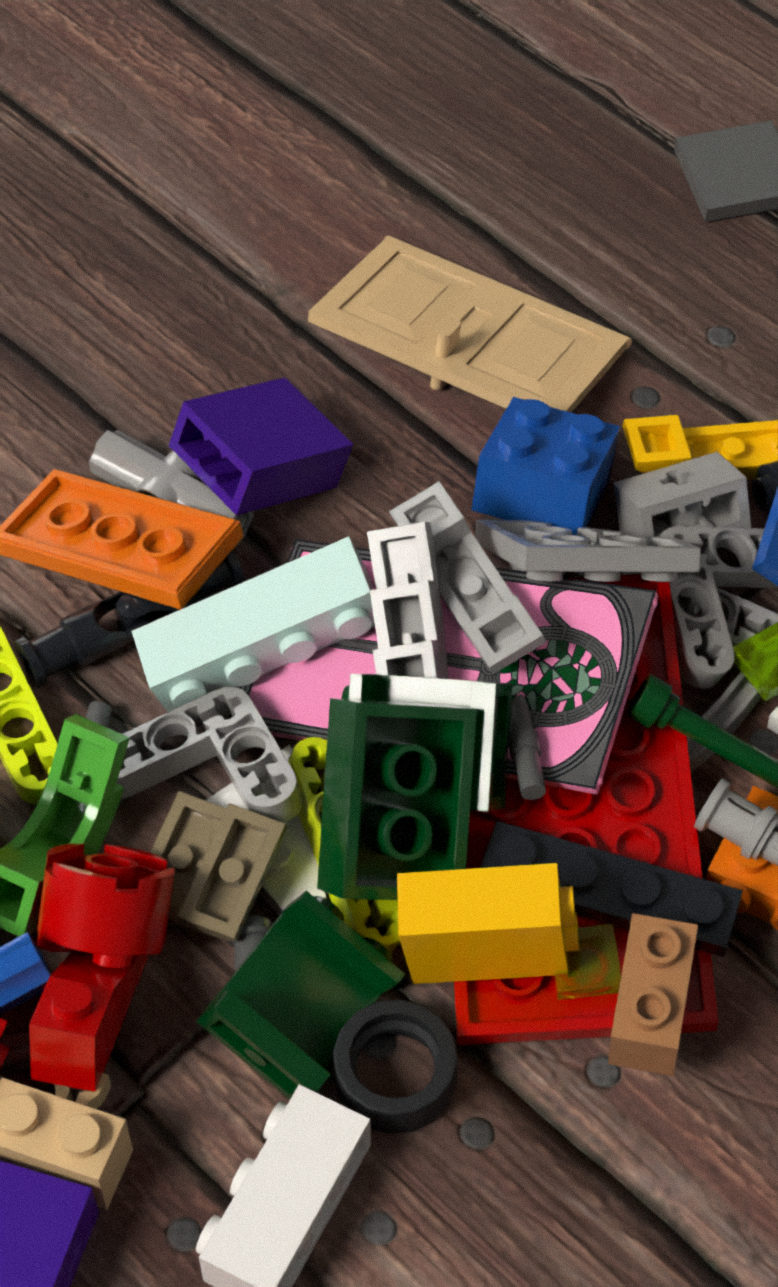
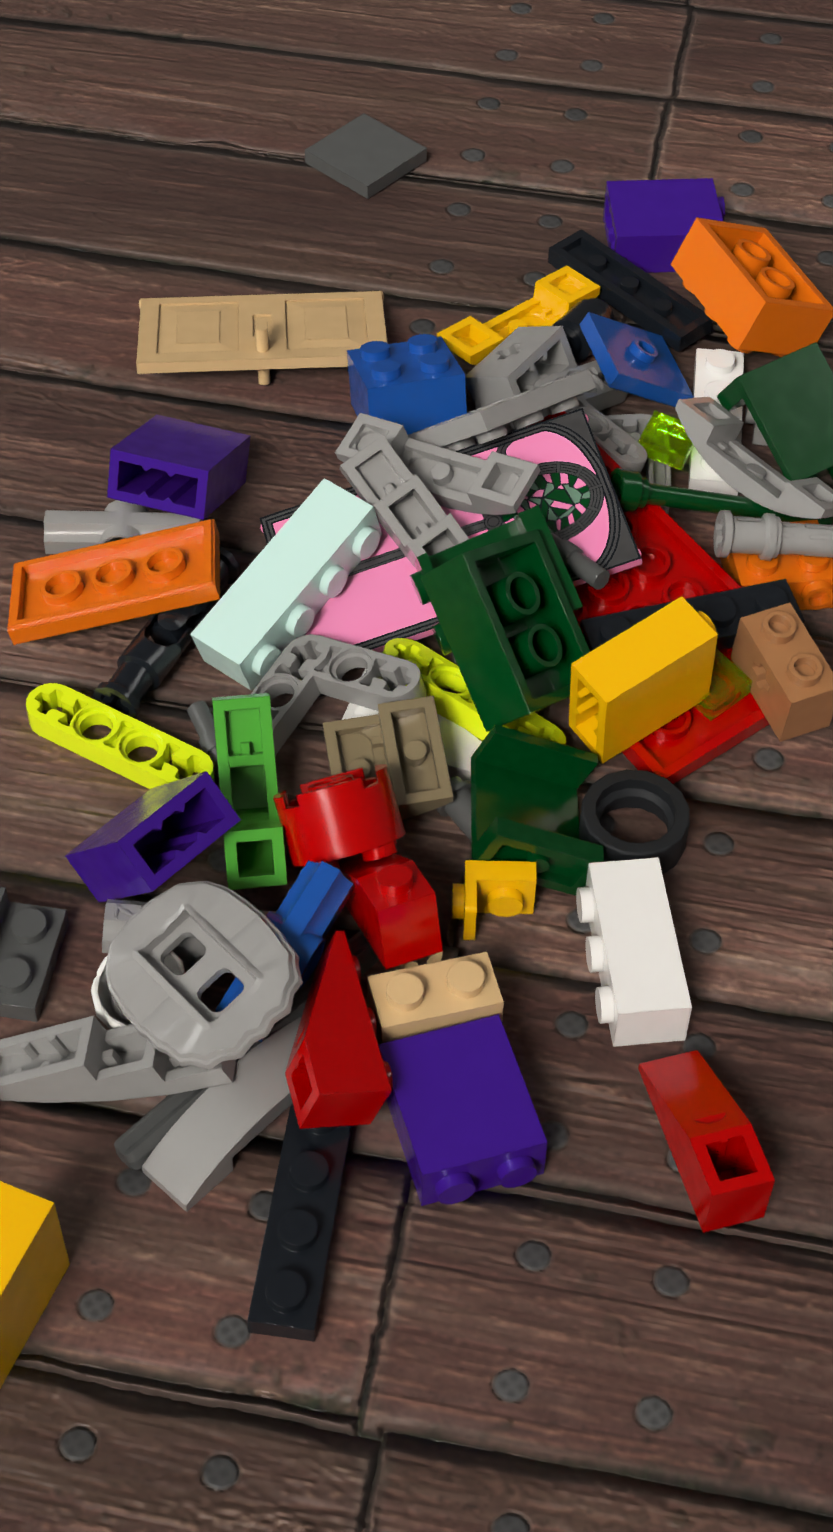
camera: 35 degrees left, 5 degrees down
(211, 1055) = (493, 888): none -> yellow bracket

